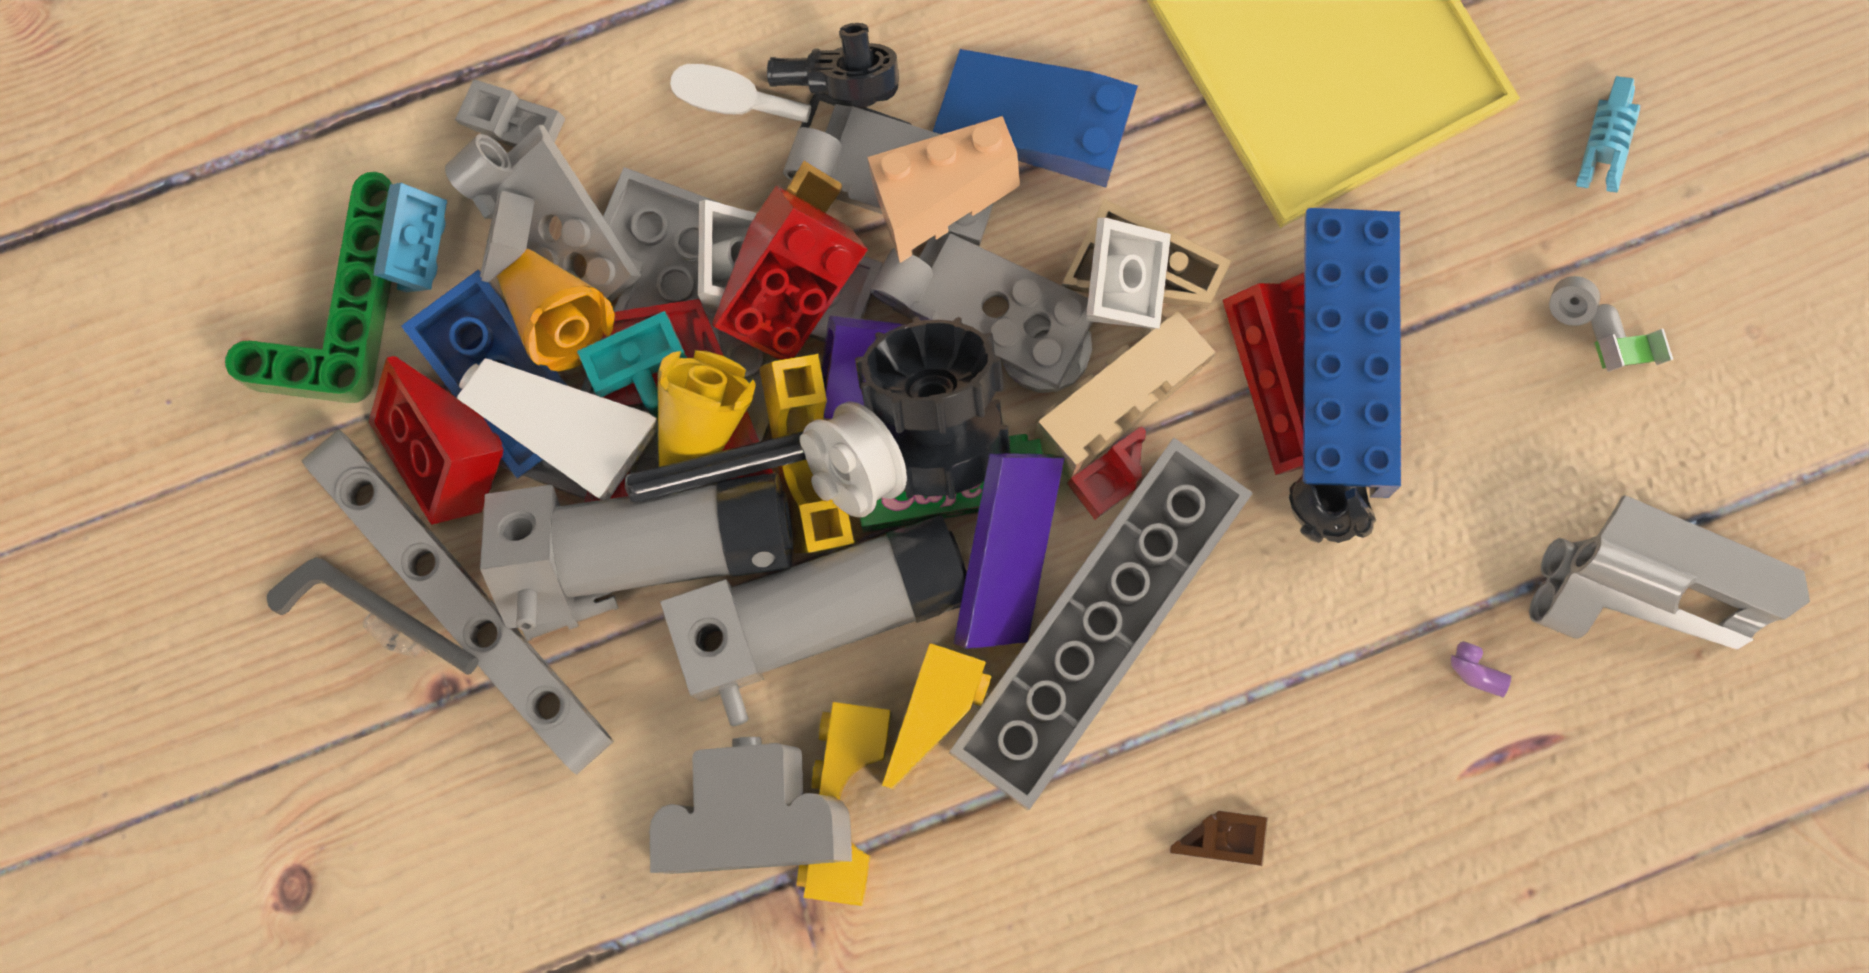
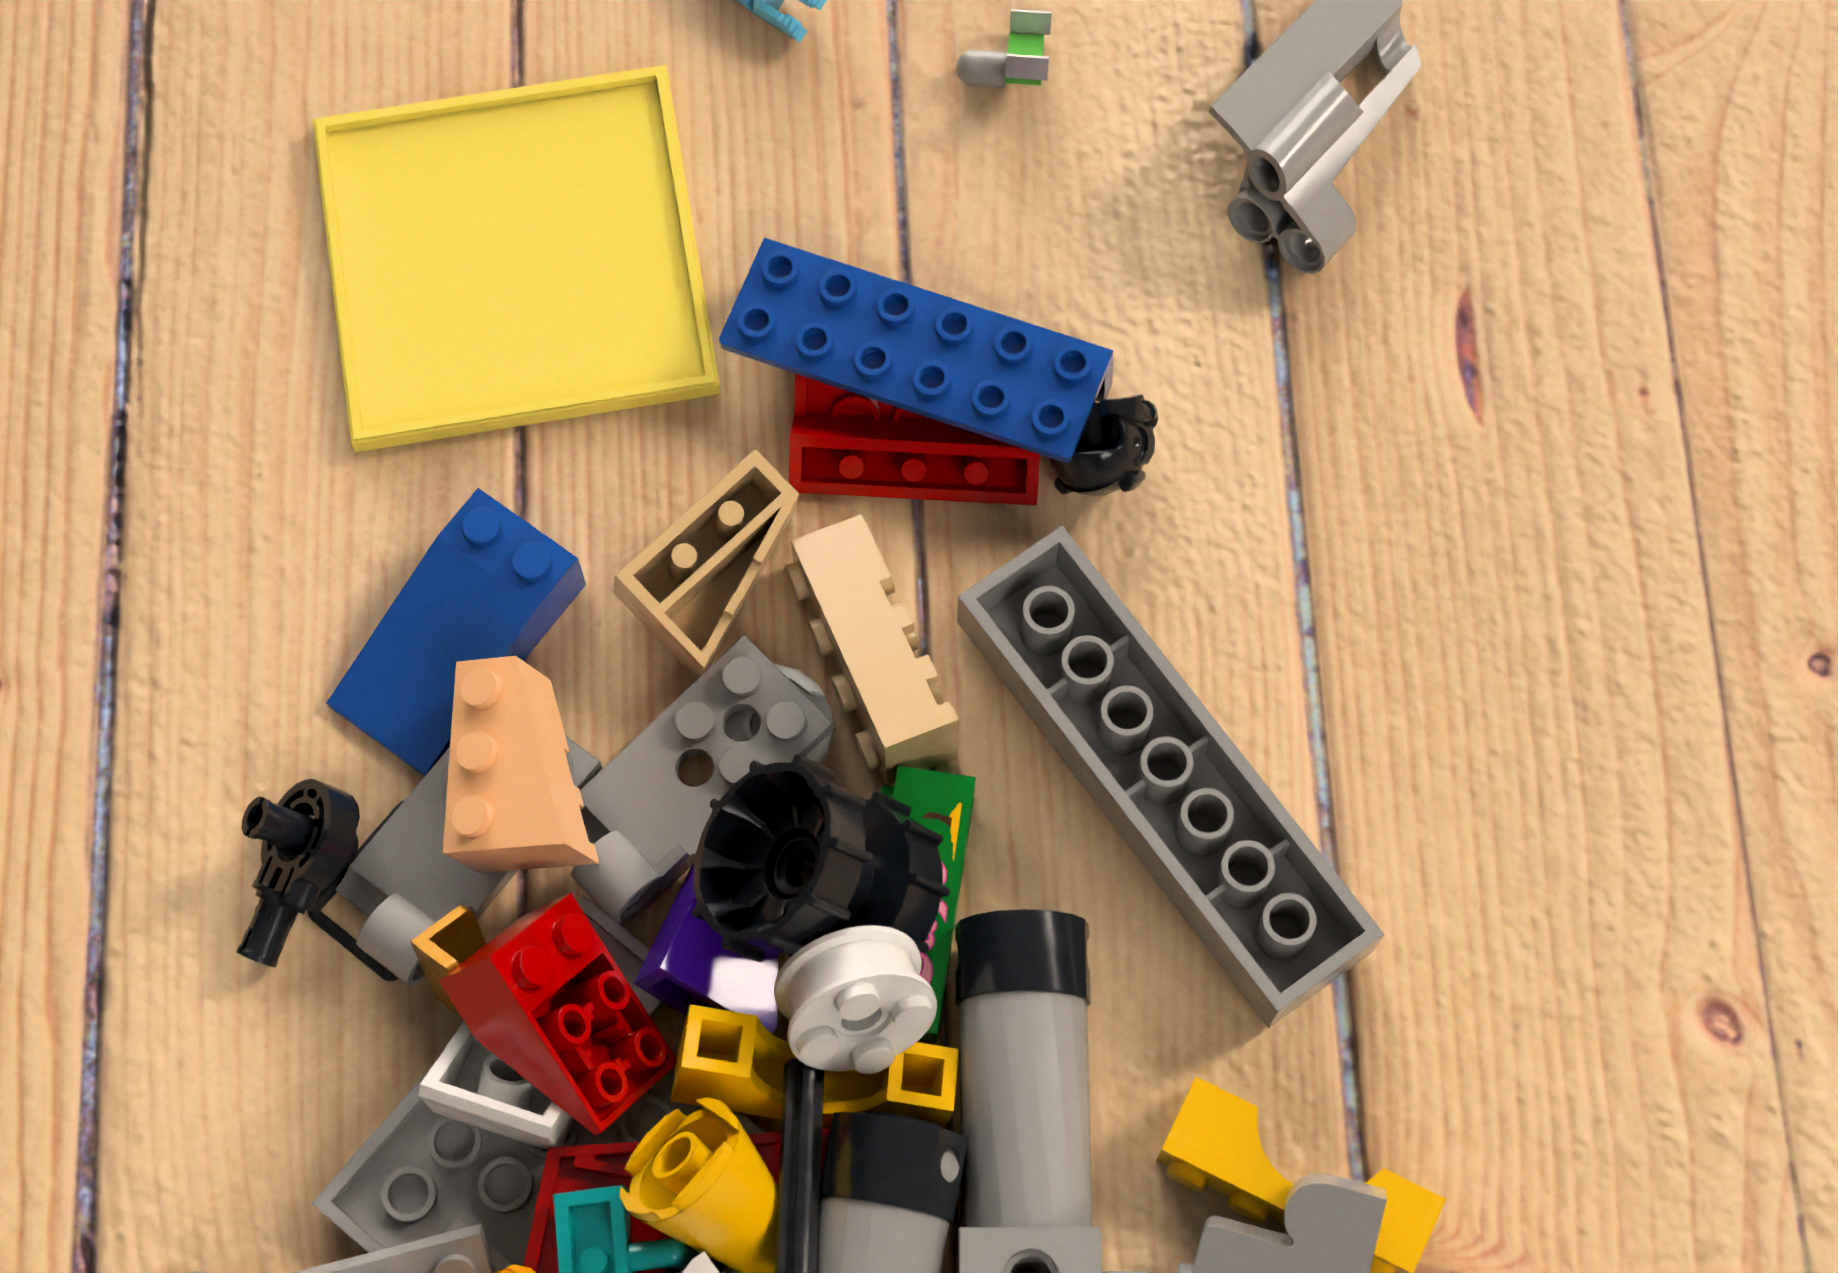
camera: 70 degrees left, 10 degrees down
(730, 93) = (262, 1025): white piece -> none
(939, 702) = (1208, 1012): yellow slope -> none
(1008, 549) = (1036, 848): dark purple tile -> none
(1110, 476) = (978, 700): red slope -> none
(1127, 275) = (727, 581): white slope -> none
(1226, 838) = (1480, 717): reddish brown slope -> none
(1478, 675) = (1365, 357): medium lavender arm -> none
(1574, 301) = (943, 90): light grey tile -> none

